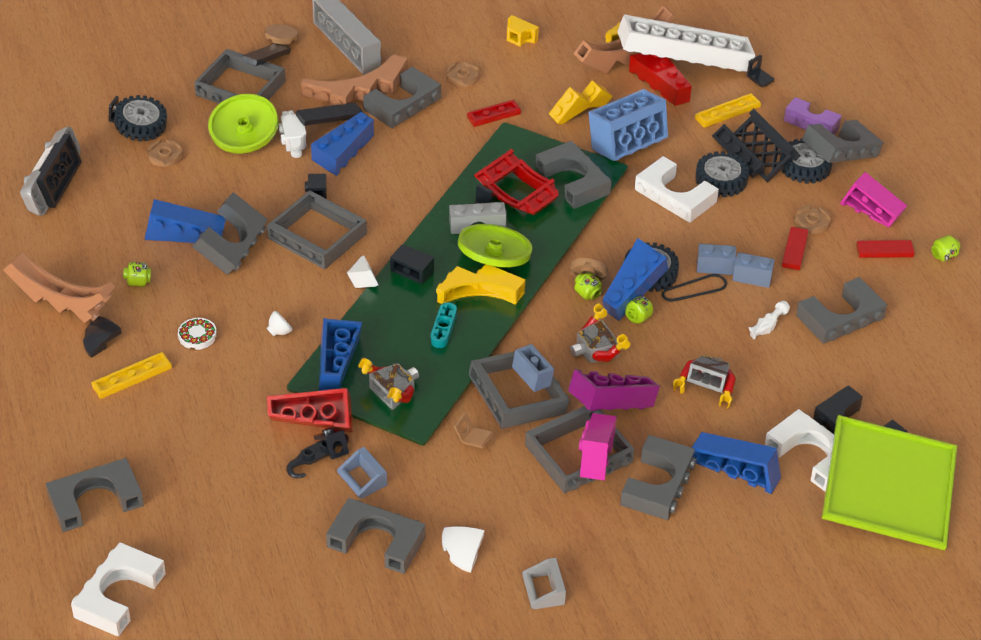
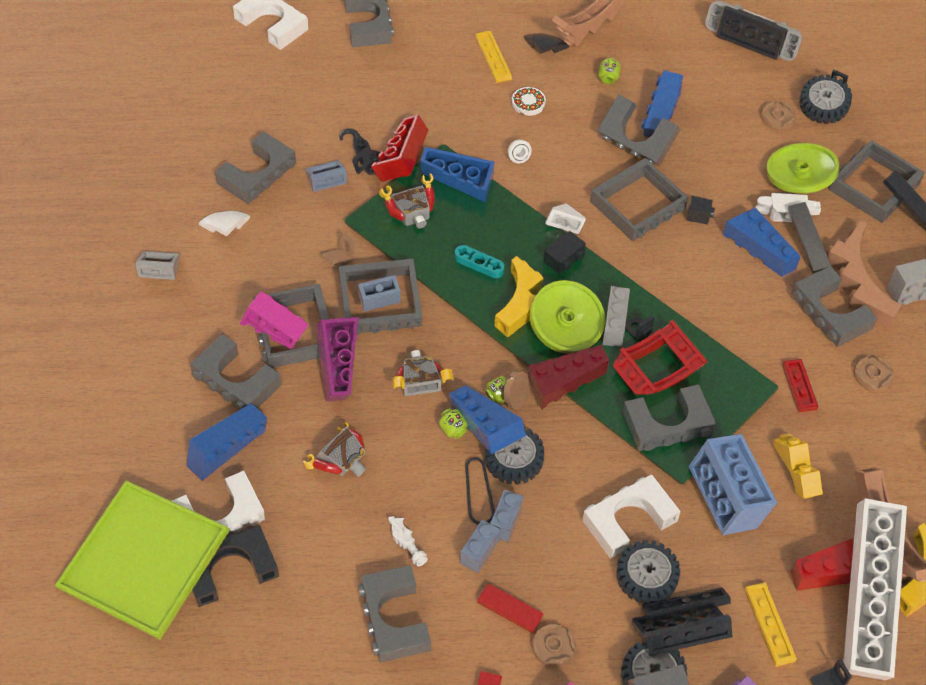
camera: 105 degrees right, 10 degrees up
(557, 239) = (566, 373): none -> dark red wedge

